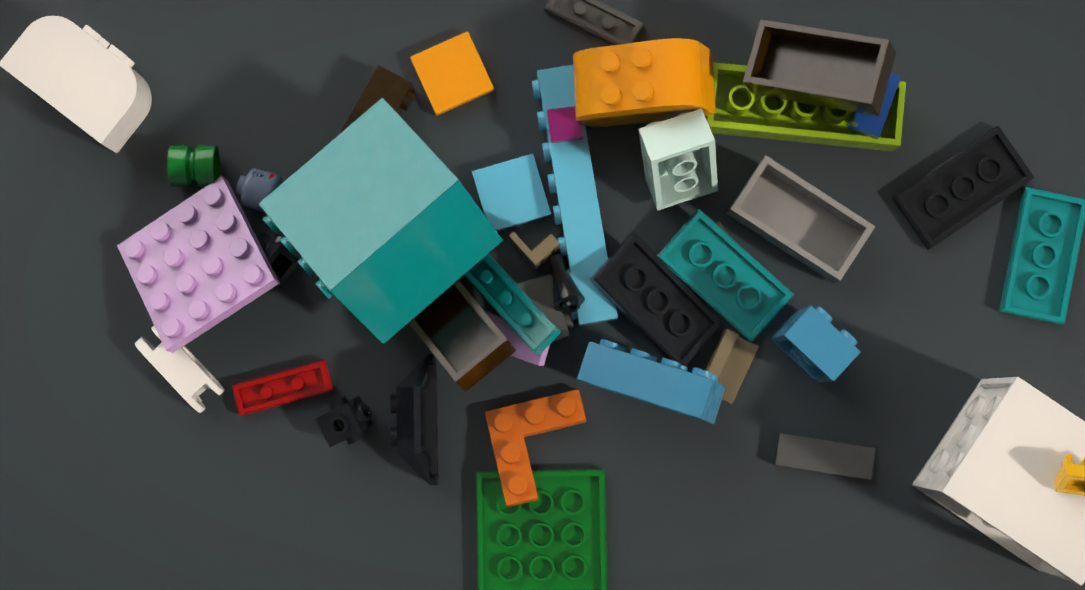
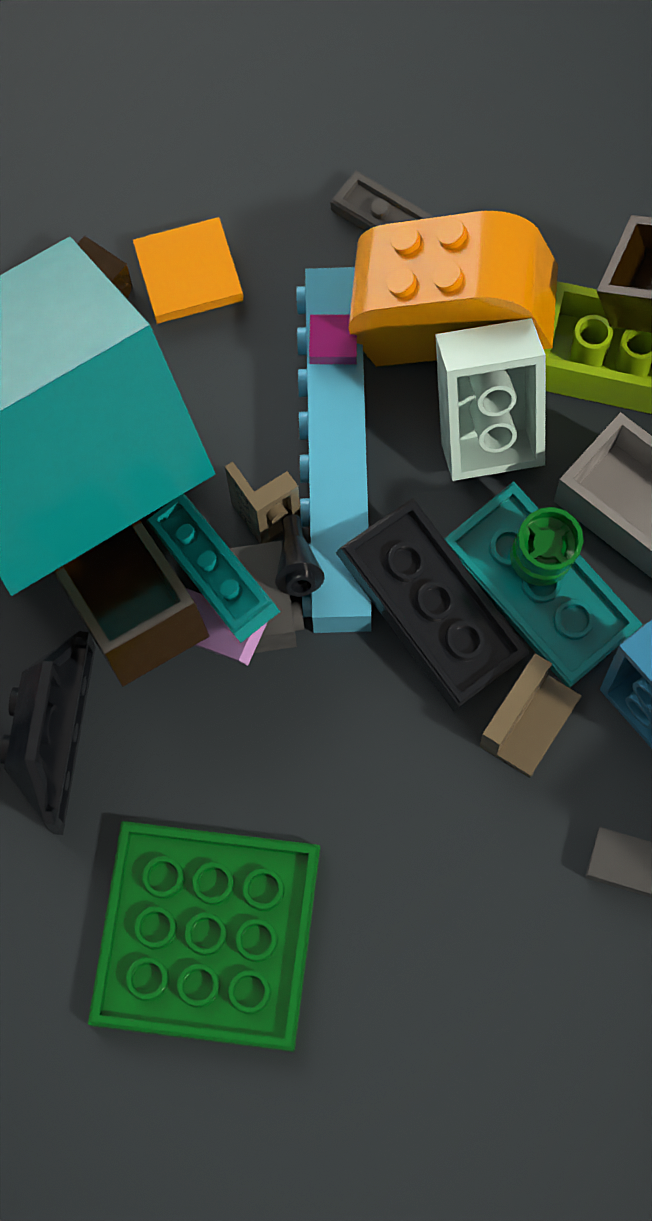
camera: 15 degrees right, 15 degrees down
(511, 192) = (247, 429): medium azure tile -> none
(513, 423) = (198, 755): orange plate -> none
(655, 383) = (410, 707): dark azure piece -> none
(727, 258) = (546, 546): none -> green wheel

